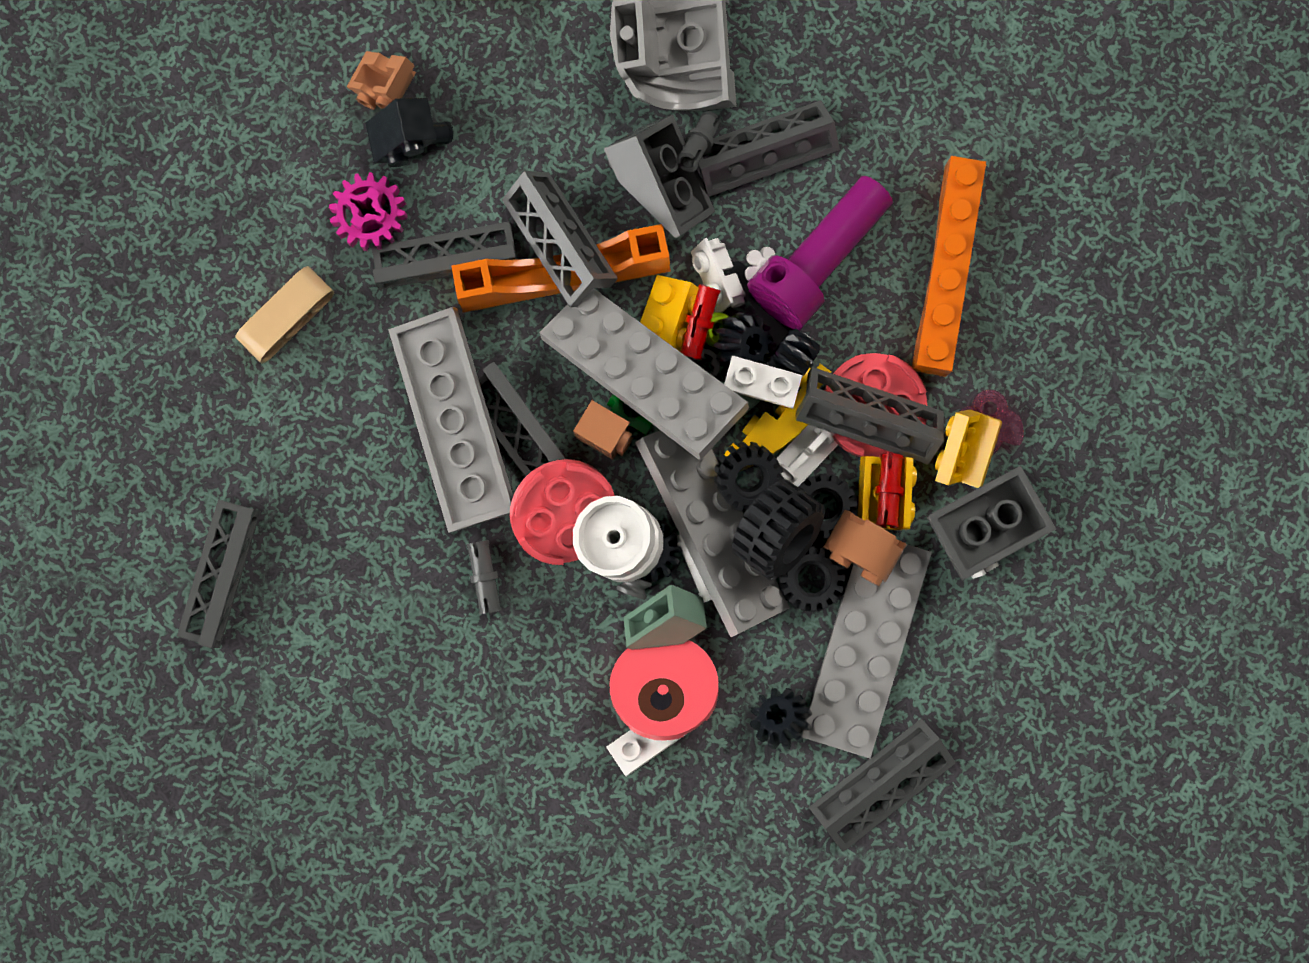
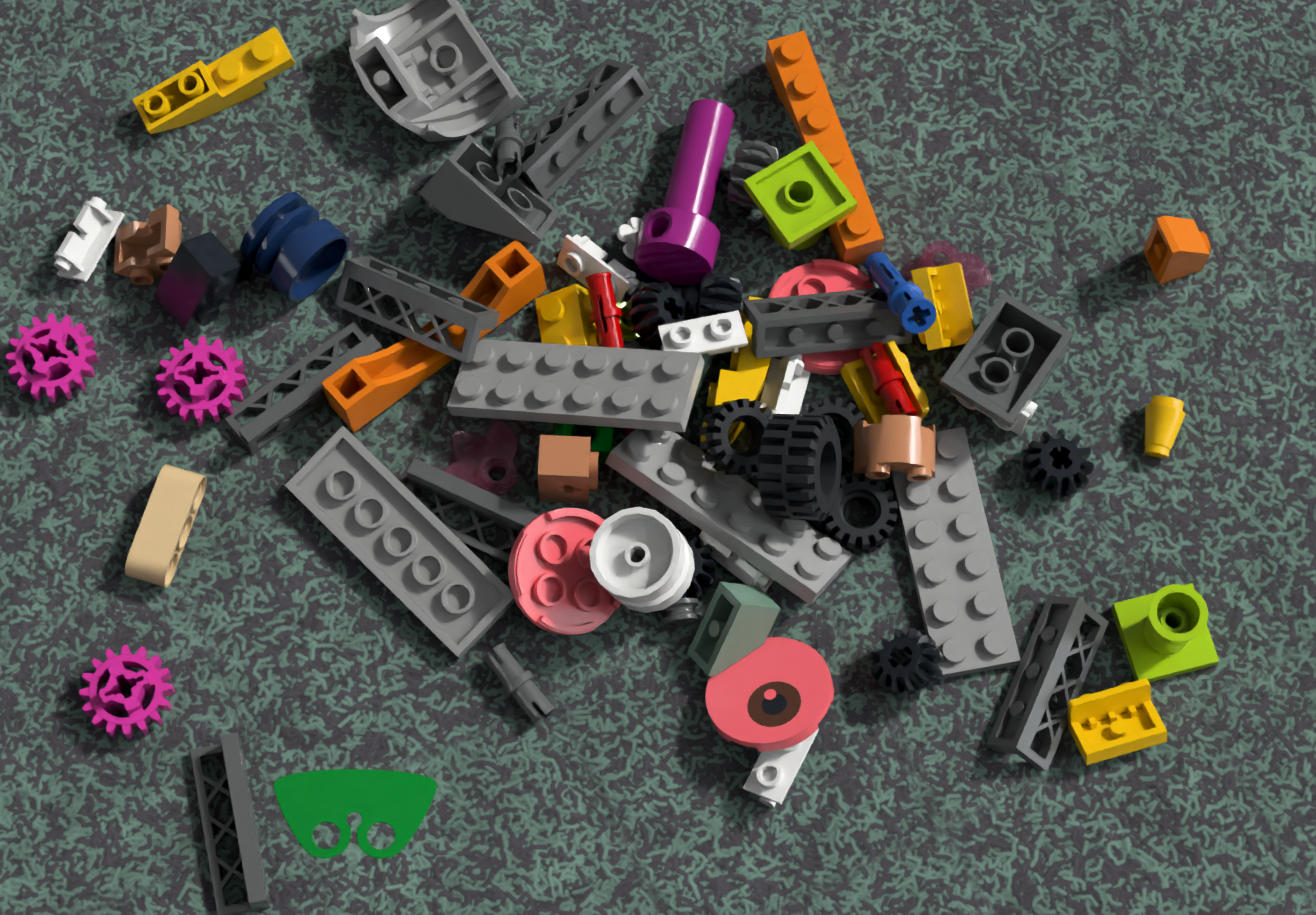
camera: 35 degrees left, 15 degrees down
(192, 417) = (111, 697): none -> dark pink gear
(275, 124) = (59, 373): none -> dark pink gear
(327, 60) = (80, 254): none -> white hinge
(338, 603) = (375, 794): none -> green piece
(489, 139) = (294, 246): none -> dark blue wheel
(549, 380) = (480, 456): none -> clear pink plate
(879, 261) = (749, 160): none -> dark grey gear
(914, 846) = (1115, 721): none -> yellow bracket
(915, 292) = (800, 197): none -> lime plant
(937, 394) = (903, 296): none -> blue pin
(977, 785) = (1161, 650): none -> lime plant
(998, 627) = (1066, 478): none -> black gear
(1087, 632) = (1162, 425): none -> yellow cone
(1182, 496) = (1176, 248): none -> orange slope

